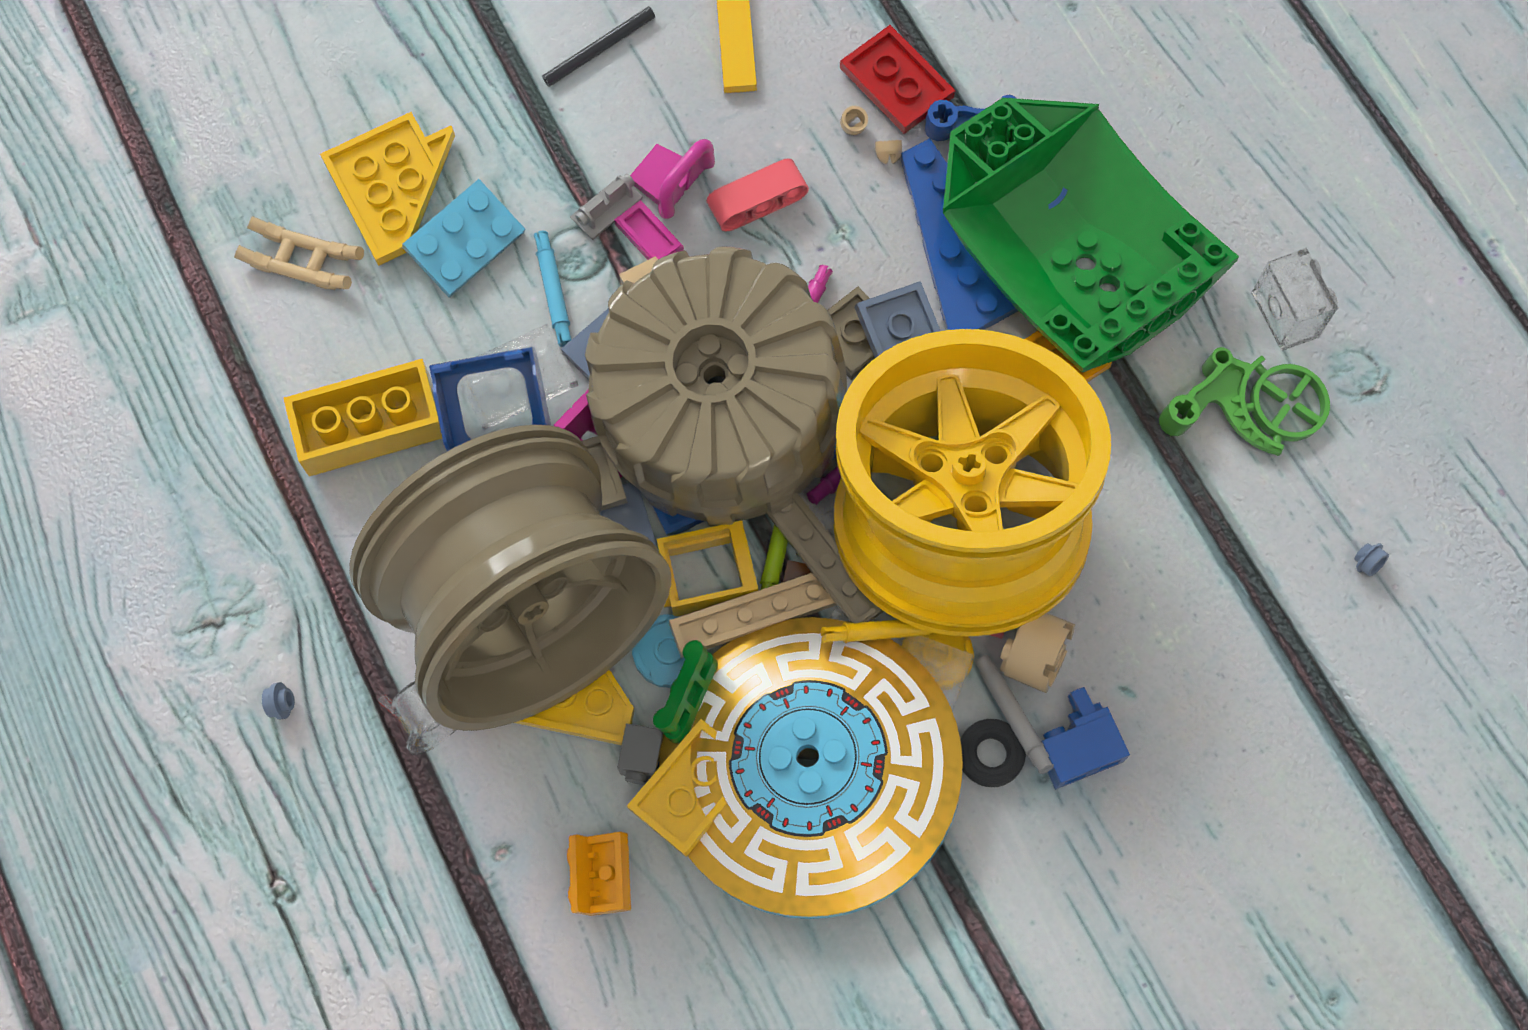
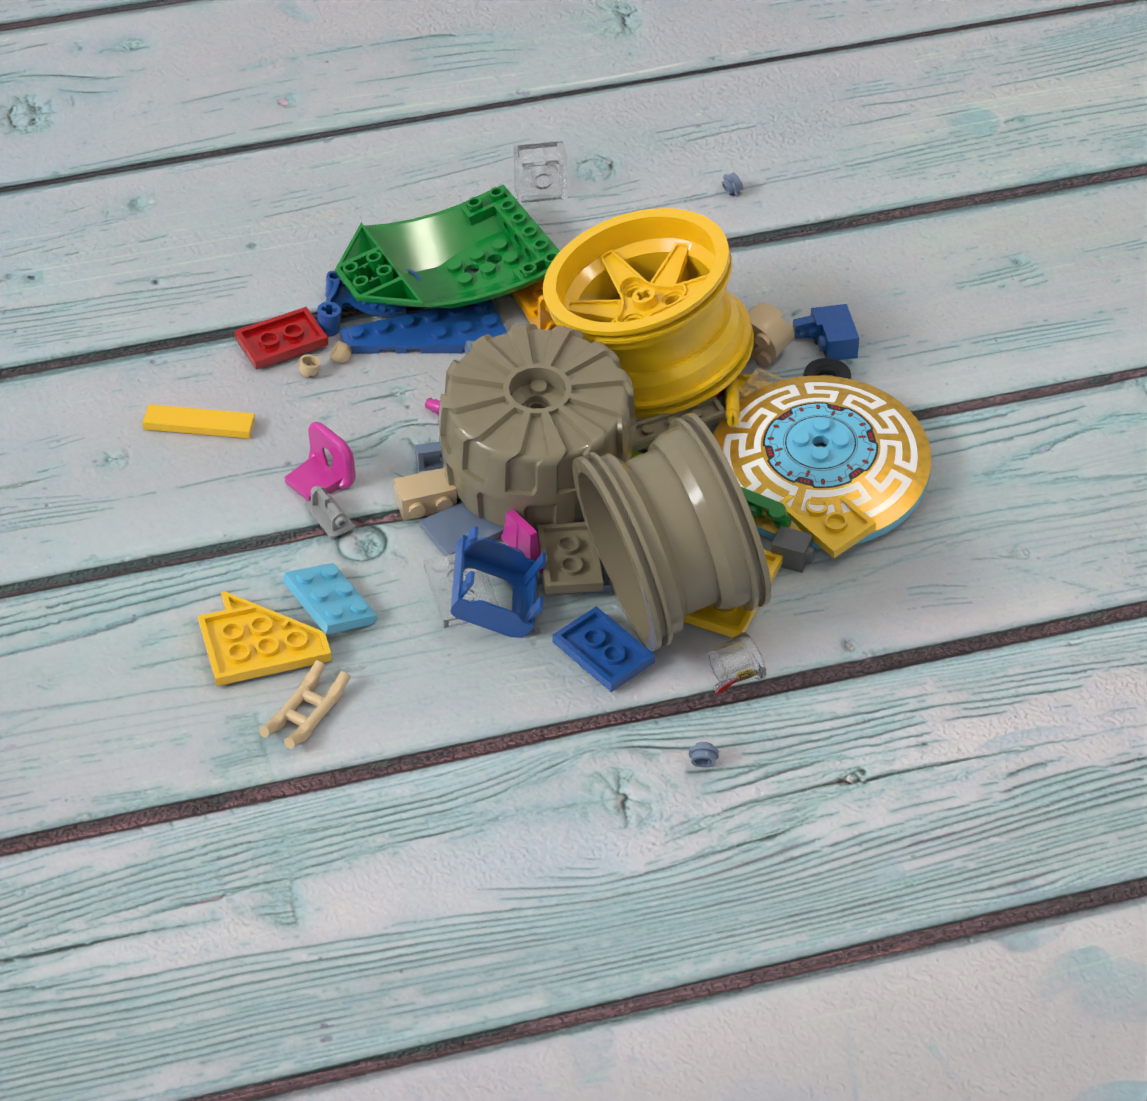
camera: 80 degrees left, 25 degrees down
(363, 417) = (477, 669): yellow brick -> none
(552, 288) = (412, 555): medium azure piece -> none
(598, 46) = (177, 502): black piece -> none
(599, 874) = (878, 582): light orange bracket -> none
(647, 232) = (363, 495): dark pink tile -> none
(757, 194) = (354, 424): coral beam -> none
(1014, 714) = (807, 356): light grey piece -> none
(1227, 386) = (588, 214): bright green piece -> none

